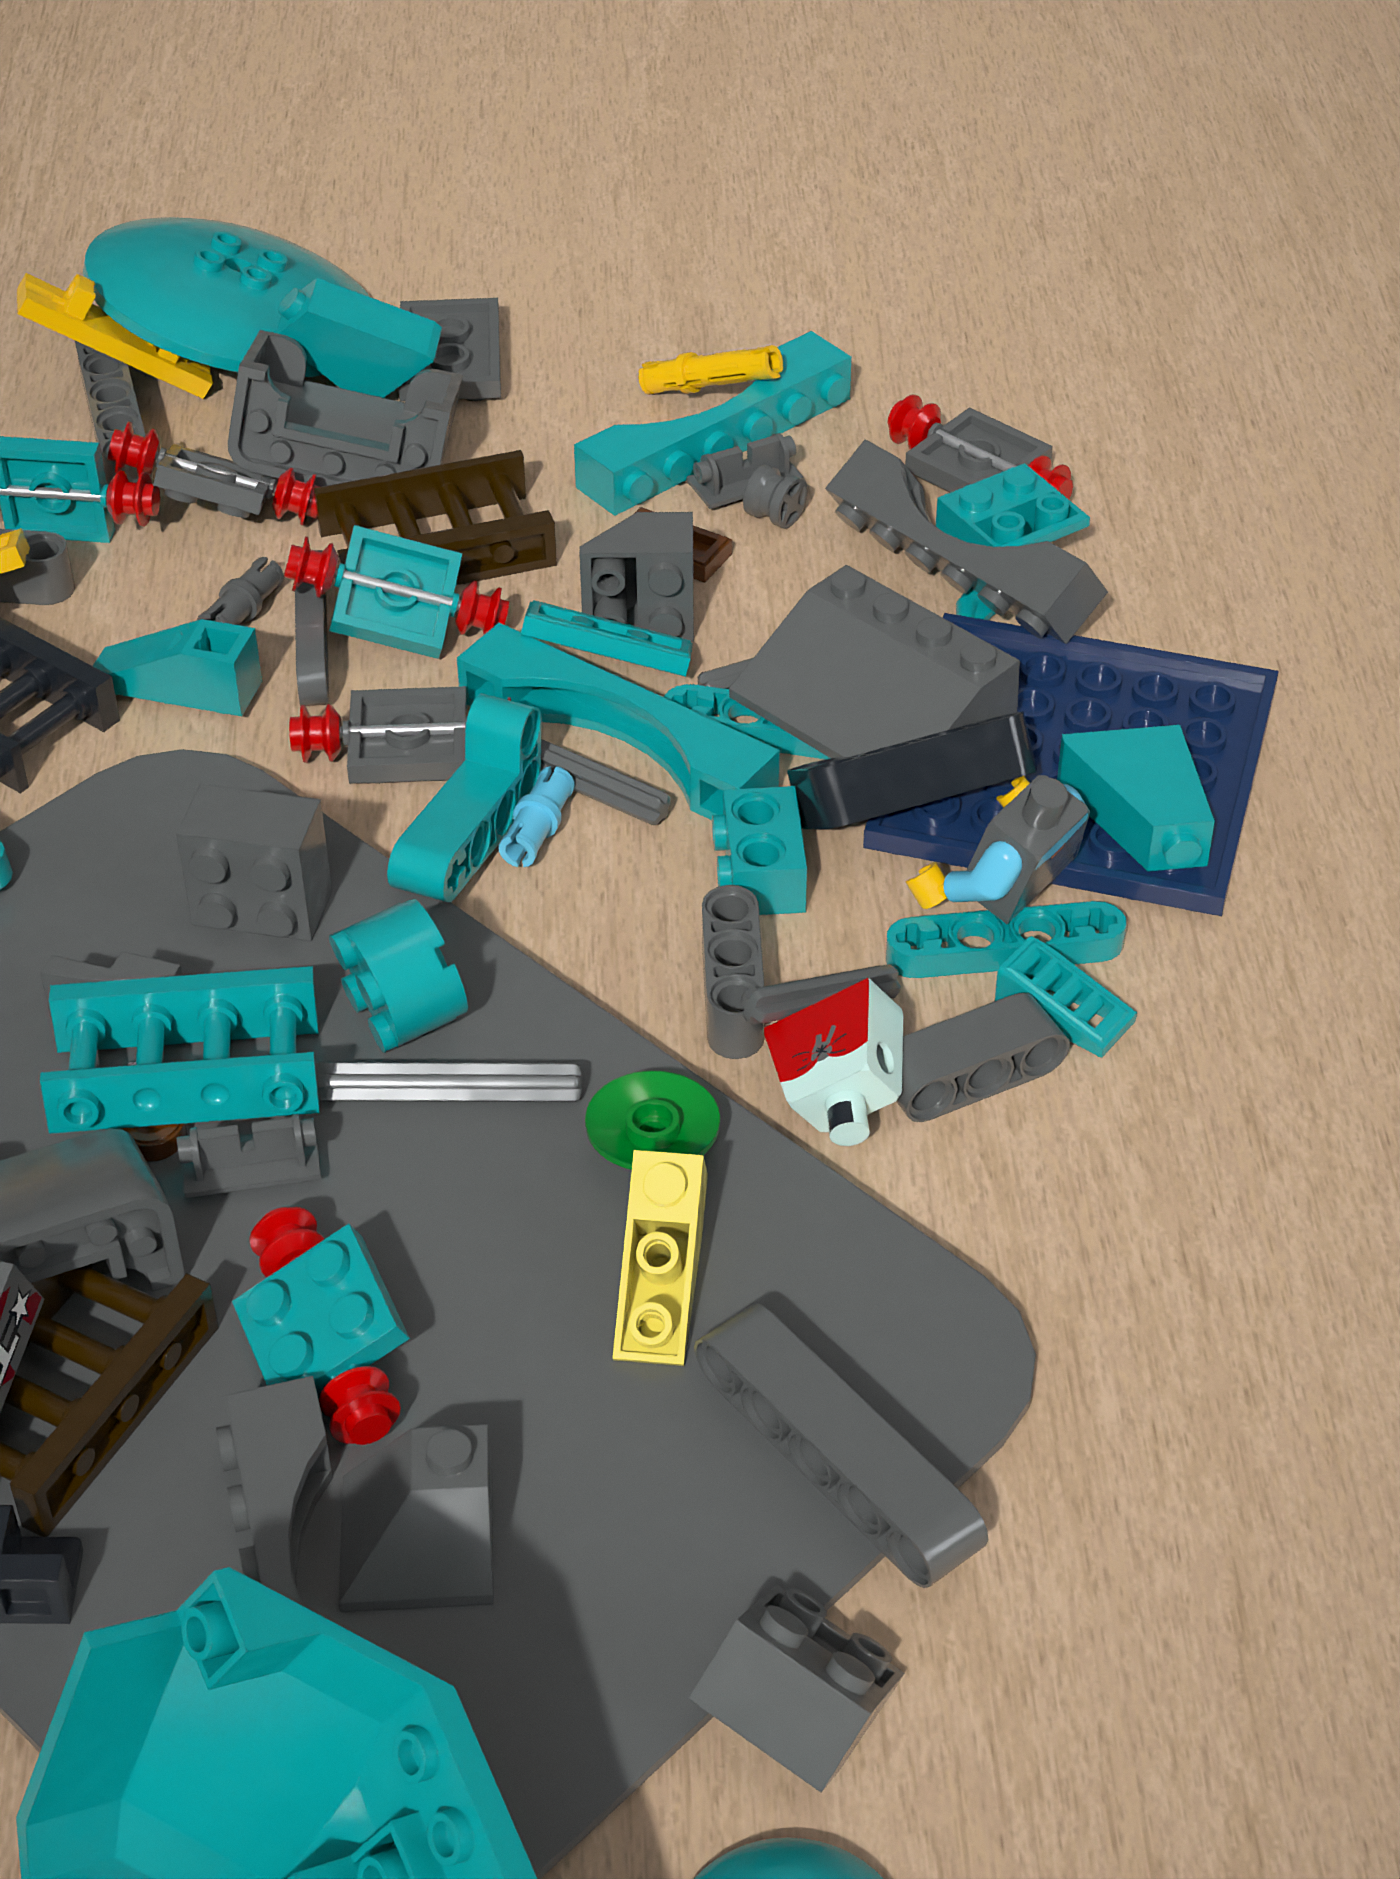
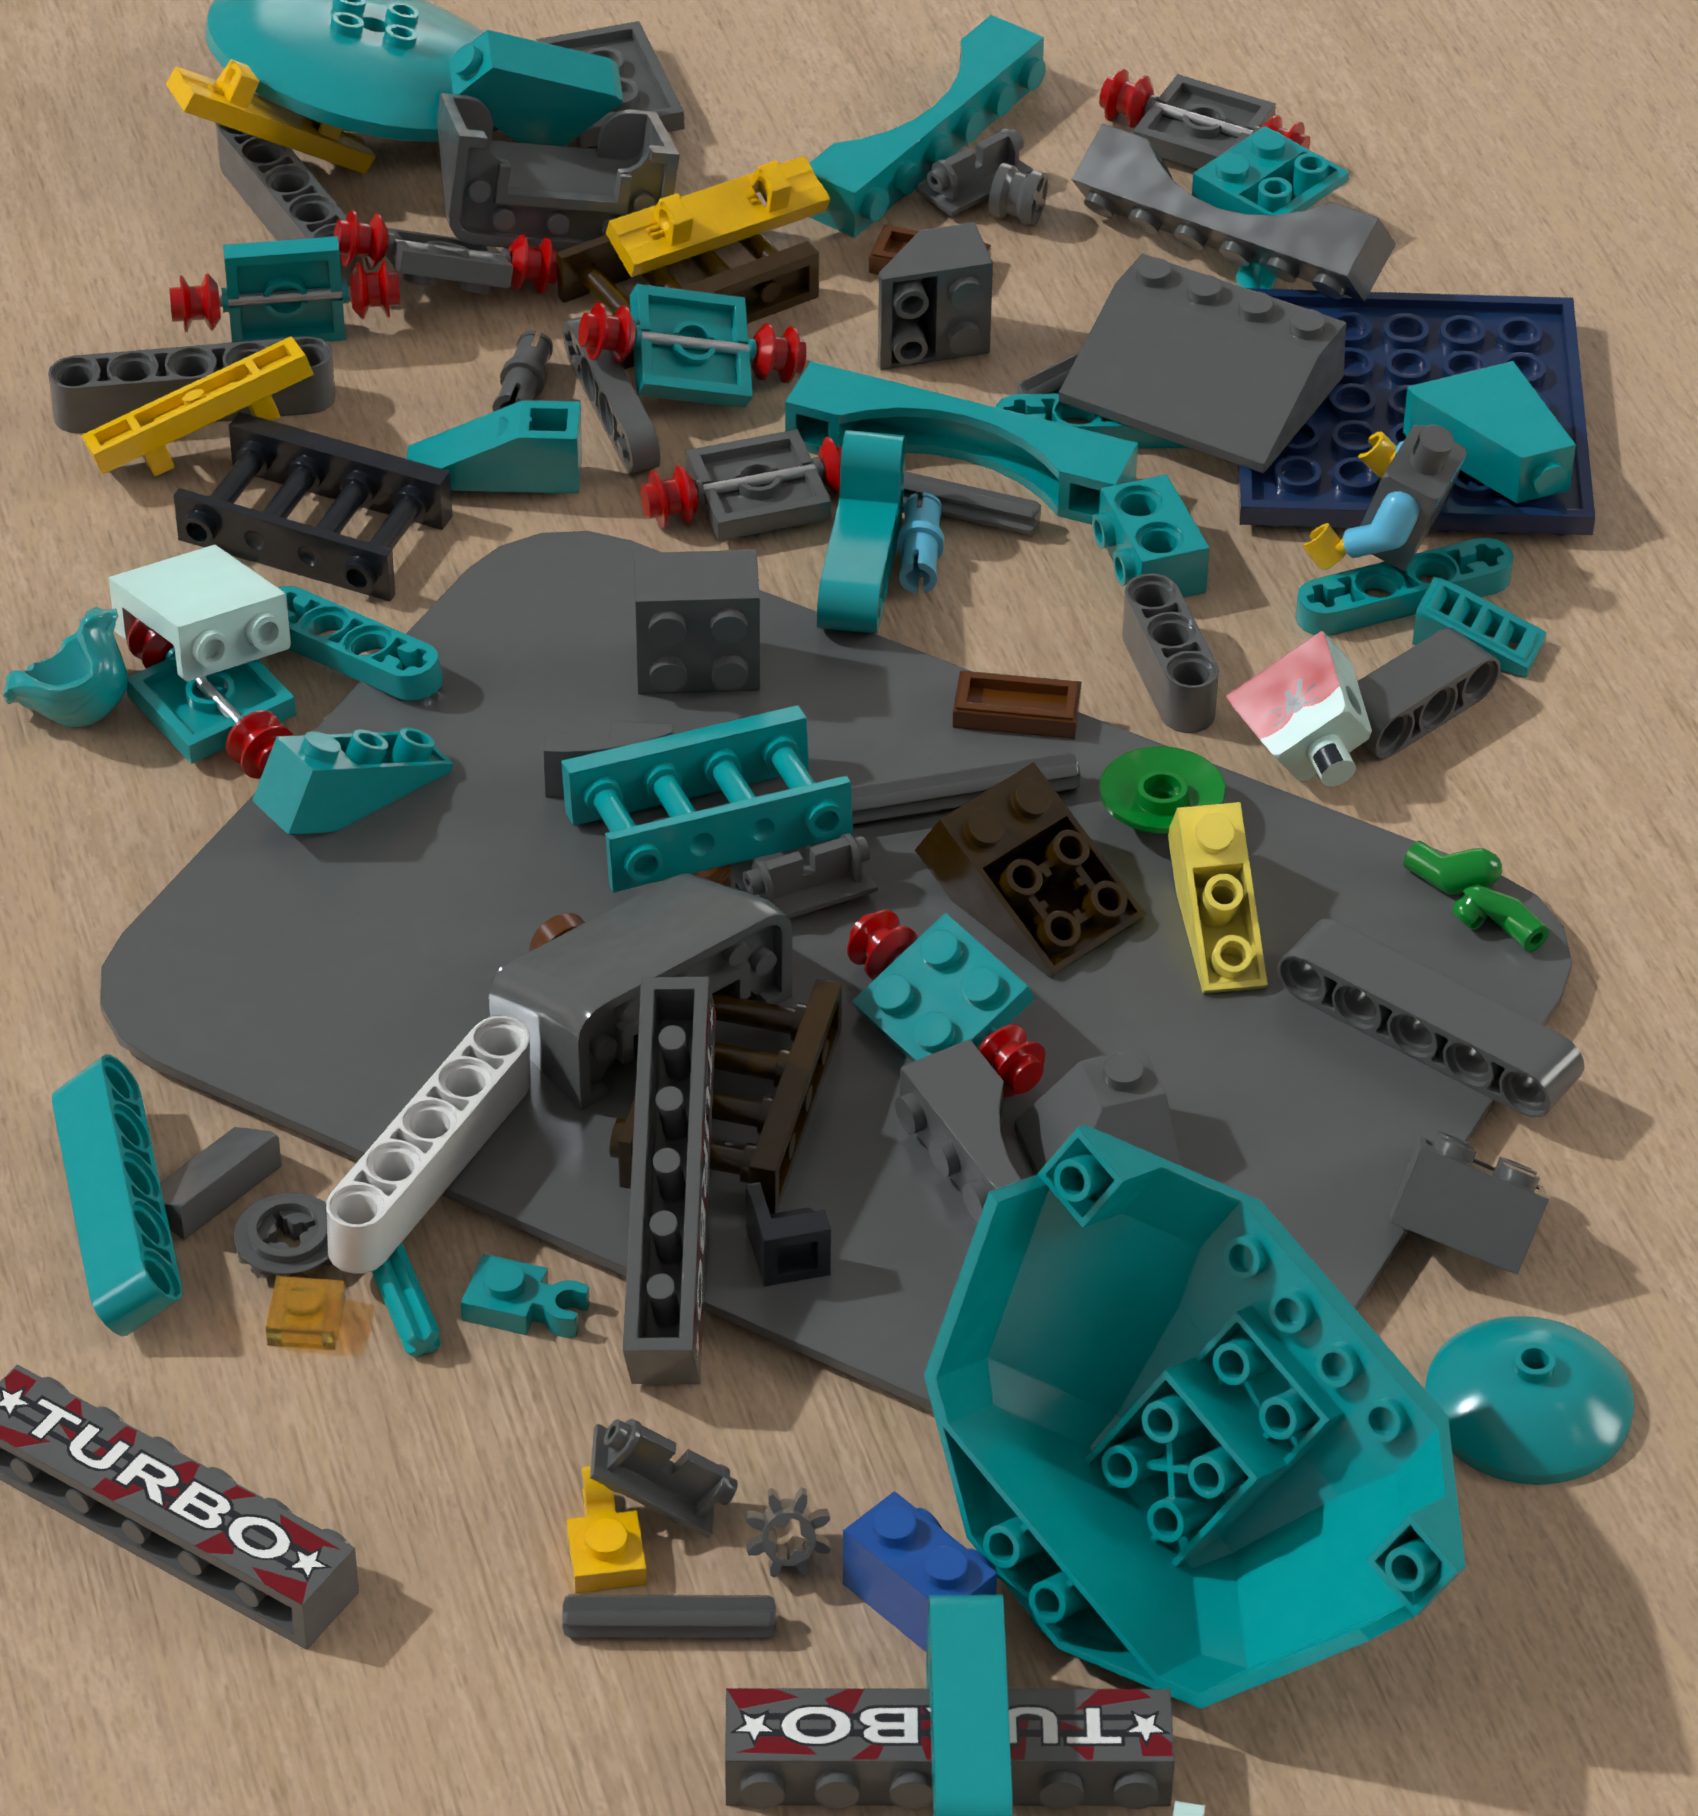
camera: 15 degrees left, 0 degrees up
(399, 974) = (881, 699): teal brick -> none
(475, 475) = (717, 215): none -> yellow hinge
(478, 1190) = (1029, 872): none -> dark brown slope
(553, 1000) = (1017, 704): none -> reddish brown tile
(607, 637) = (917, 360): teal tile -> none
(693, 371) = (883, 75): yellow pin -> none
(783, 999) = (1242, 665): dark grey axle -> none
(912, 772) = (1275, 444): black beam -> none
(934, 1270) = (1453, 871): none -> green arm
(969, 1324) = (1506, 911): none -> green arm

